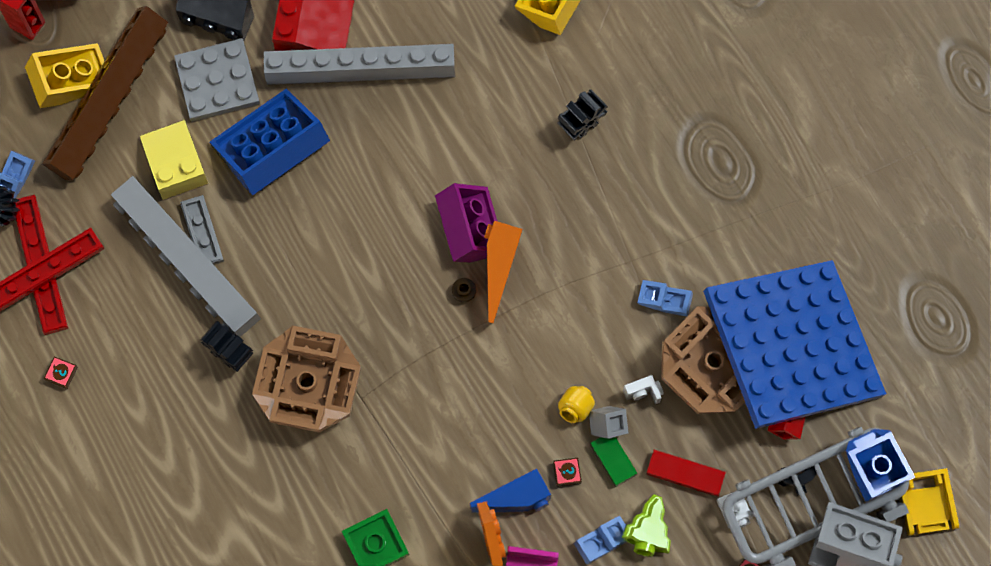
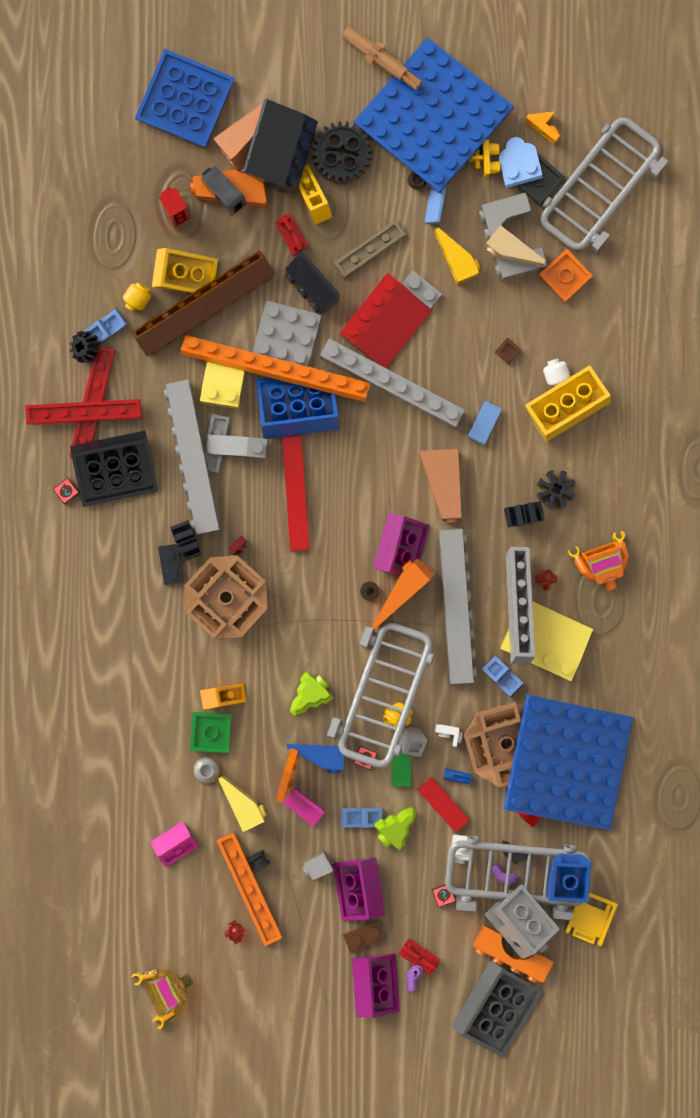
camera: 20 degrees right, 15 degrees up
(29, 126) = (137, 297): none -> yellow head
(102, 316) = (113, 468): none -> black slope
(222, 115) = (275, 368): none -> orange plate
(224, 385) = (170, 564): none -> black plate
(228, 217) = (236, 446): none -> light grey slope
(288, 319) = (238, 546): none -> dark red plate
(321, 234) = (295, 493): none -> red tile
(365, 494) = (223, 696): none -> light orange slope
(464, 435) = (310, 694): none -> lime rock
(474, 130) = (444, 481): none -> nougat slope
(482, 51) = (484, 423): none -> medium blue slope
(517, 452) = (337, 729): none -> light grey bar
(569, 253) = (456, 606): none -> light grey brick
(612, 73) = (562, 492): none -> black gear
(637, 205) = (520, 605): none -> light grey brick
(648, 170) = (546, 579): none -> clear red plant
(681, 433) = (457, 776): none -> blue piece
(688, 234) = (557, 642): none -> light yellow slope
(697, 119) = (604, 562): none -> orange torso
(801, 514) = (501, 876): none -> medium lavender arm

